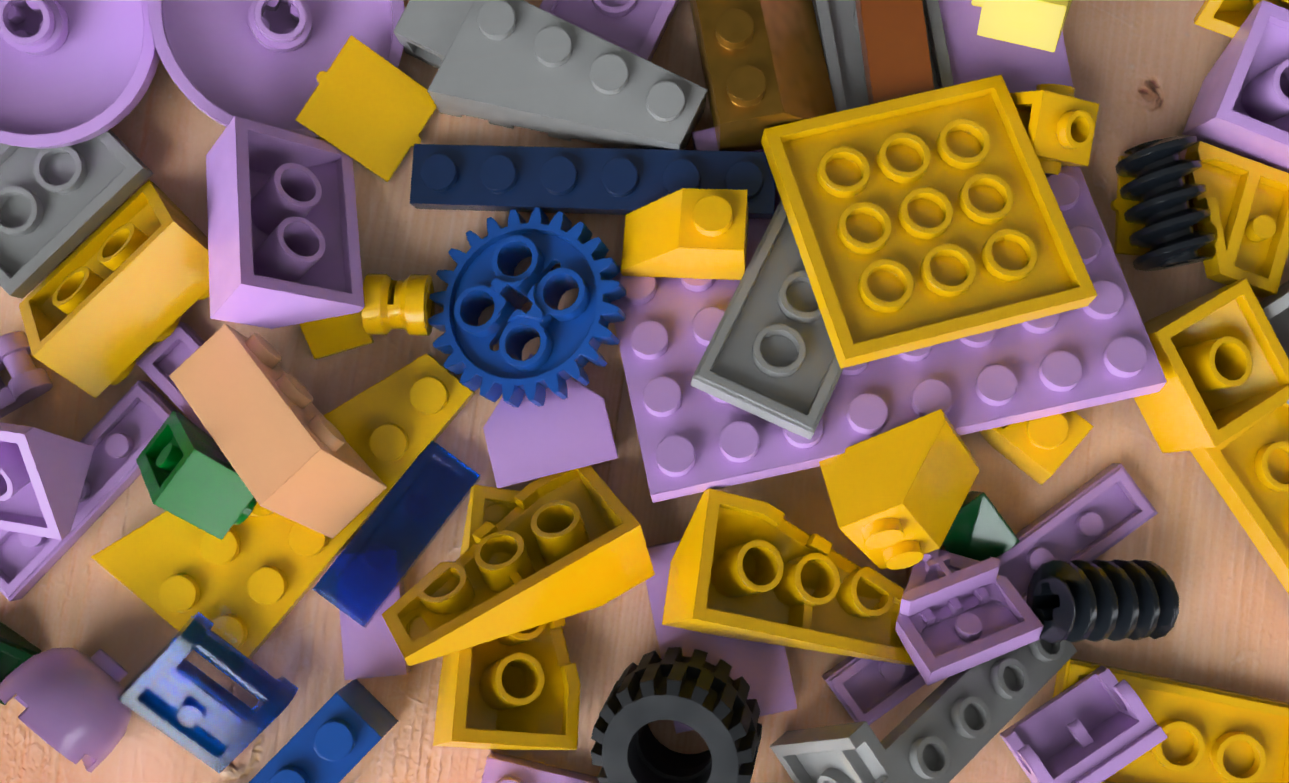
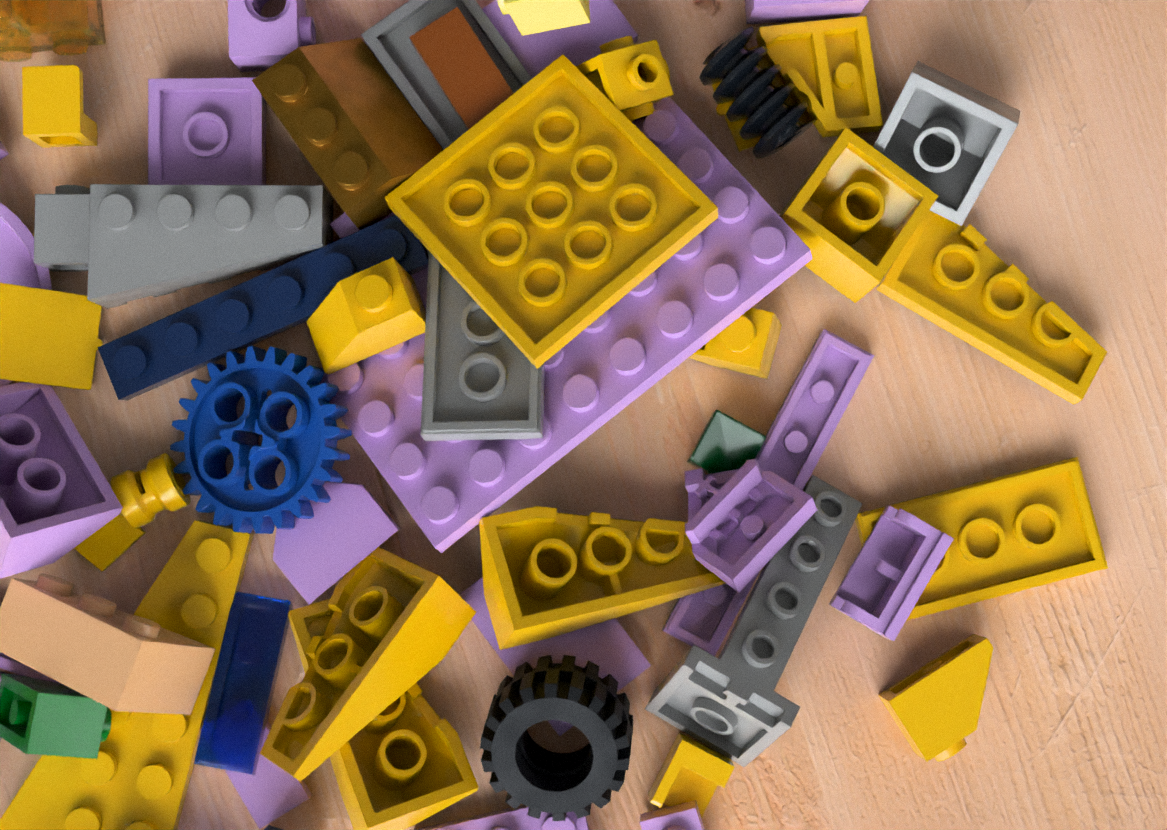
camera: 25 degrees left, 0 degrees up
(901, 489) = (641, 441): yellow slope -> none
(1103, 600) = (855, 451): black piece -> none

